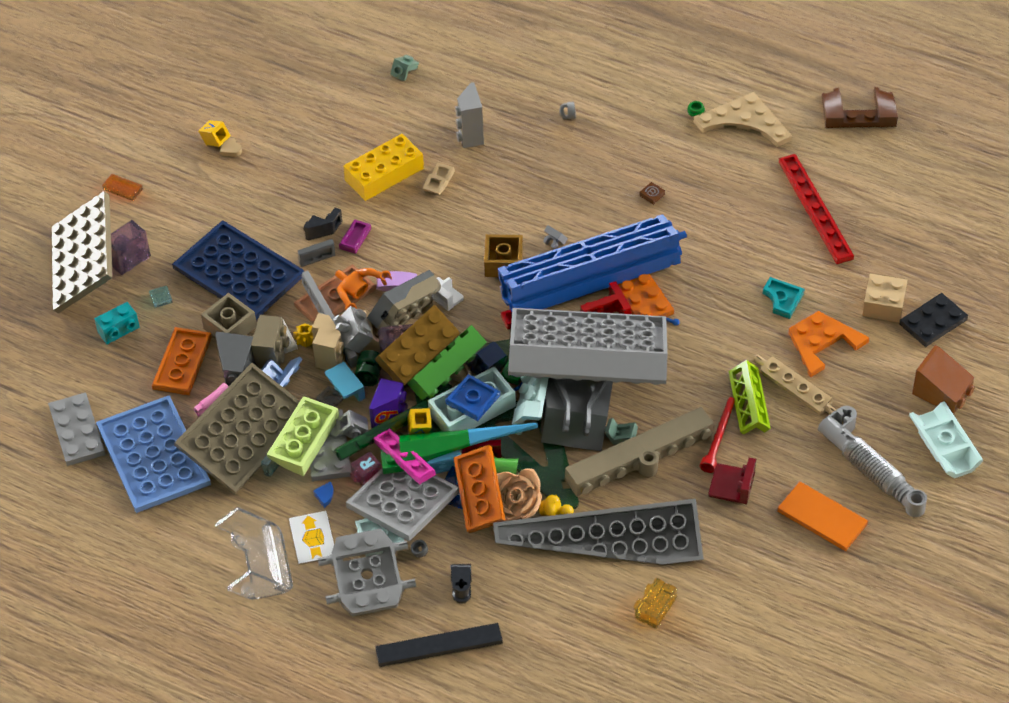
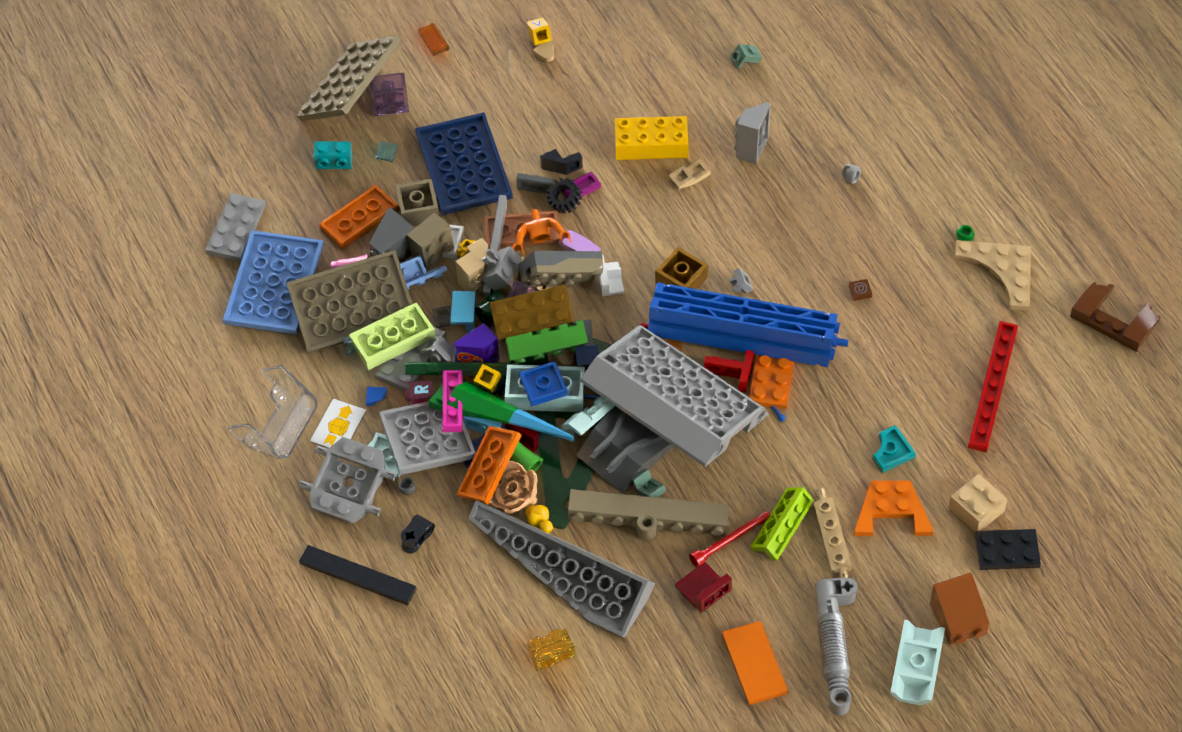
camera: 35 degrees right, 5 degrees up
(345, 239) = (557, 188): none -> black tyre

